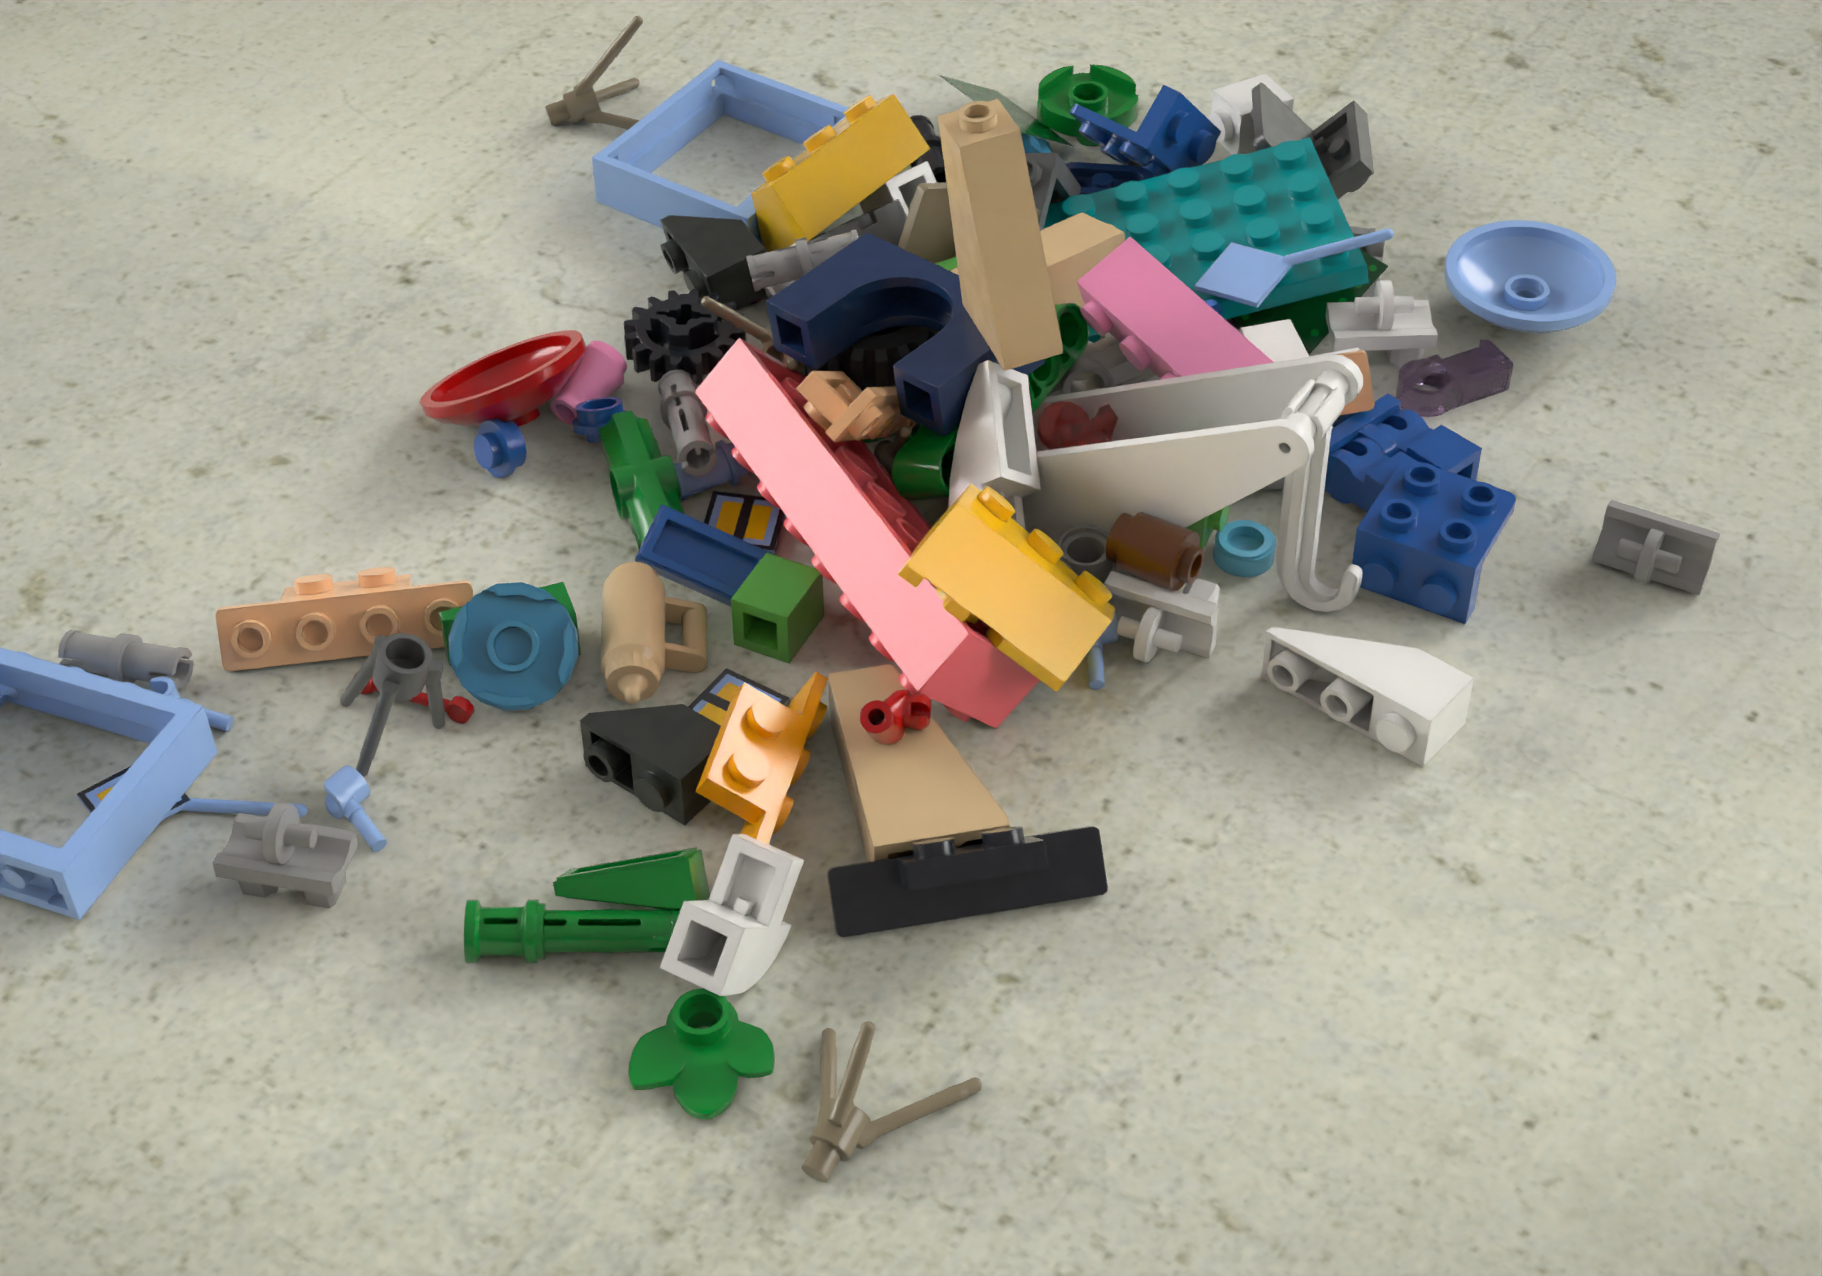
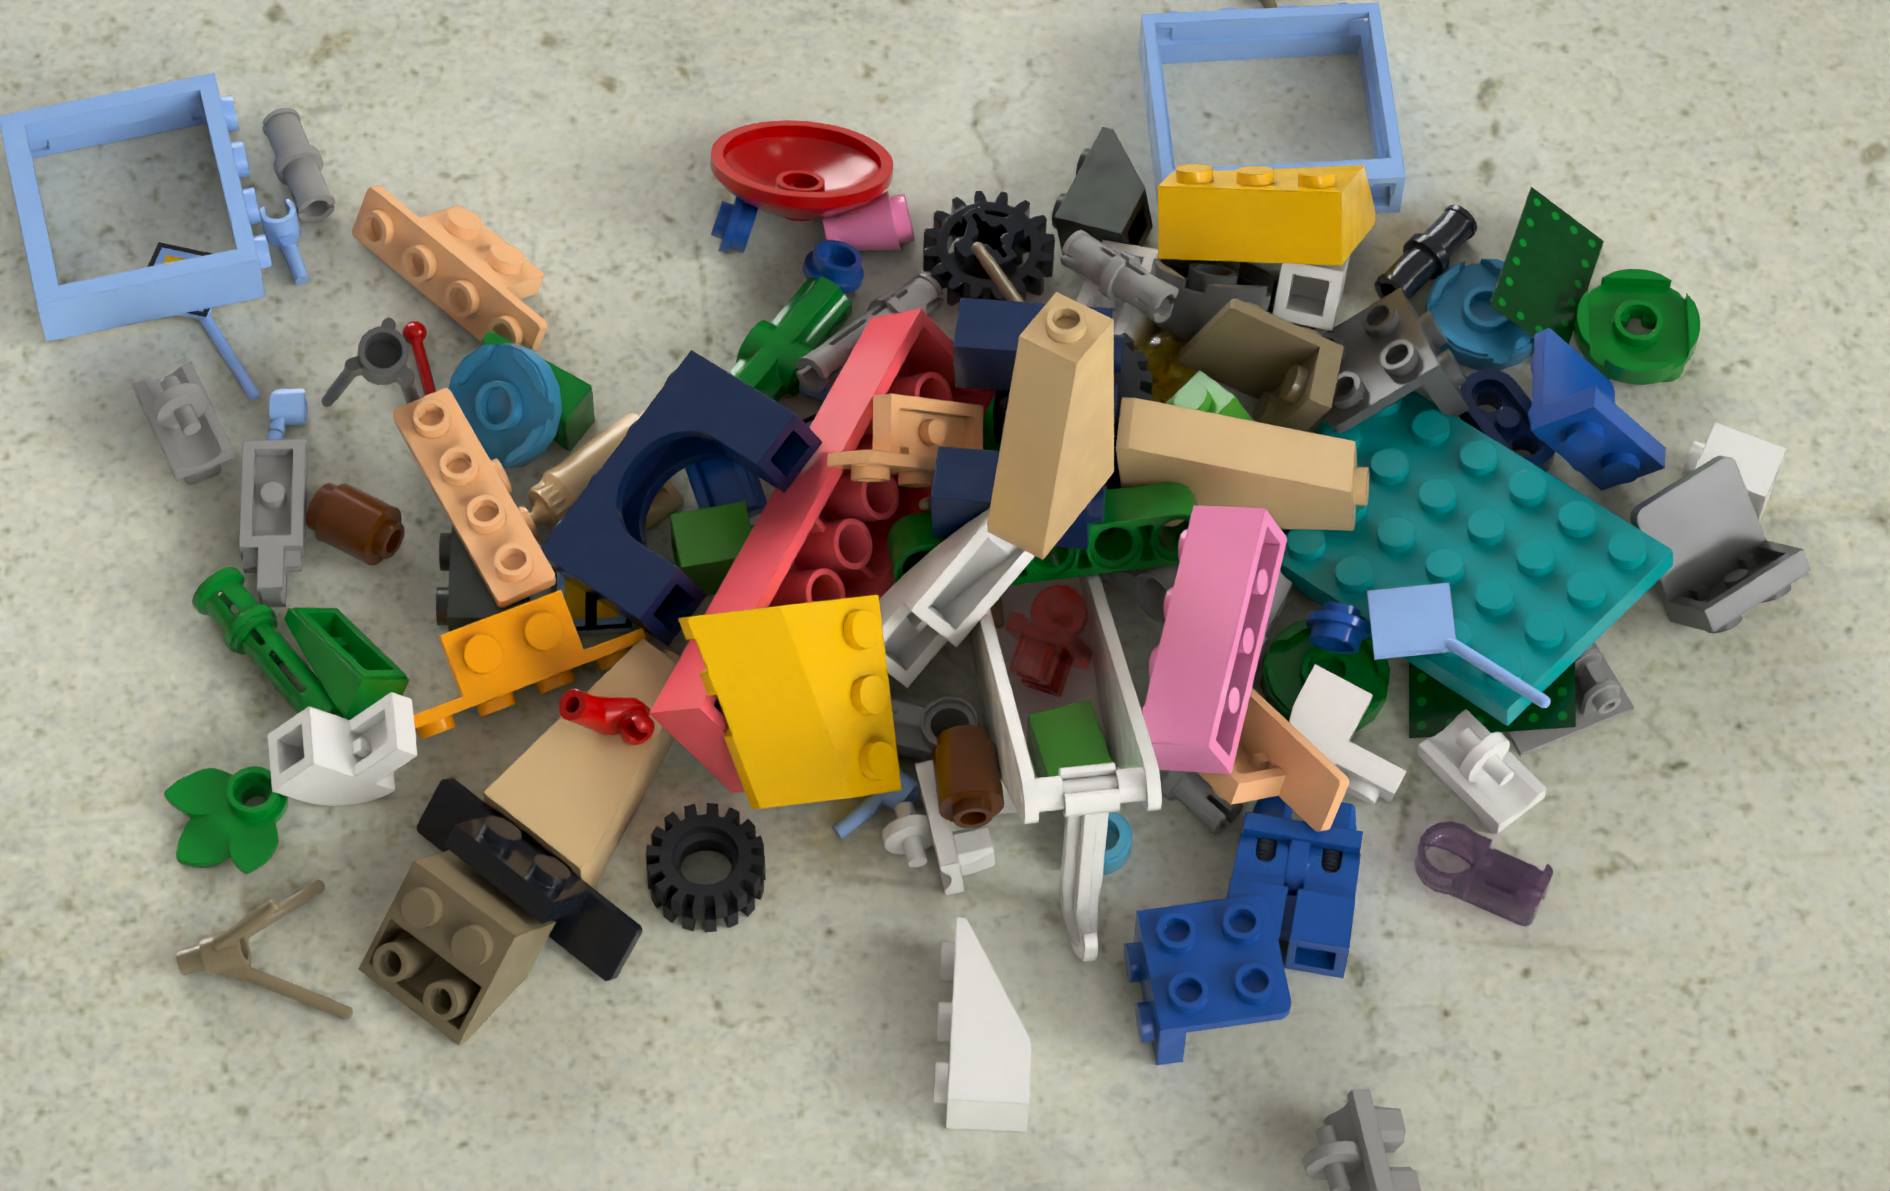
camera: 50 degrees right, 15 degrees up
(438, 852) = (273, 513): none -> light grey hinge
(509, 805) = (355, 522): none -> reddish brown brick
(568, 699) = (475, 498): none -> light nougat bracket
(683, 512) = (692, 419): none -> dark blue arch
(991, 962) = (453, 945): none -> dark tan slope
(1057, 794) = (698, 834): none -> black tyre
(1530, 276) = (1667, 820): light blue dish -> none

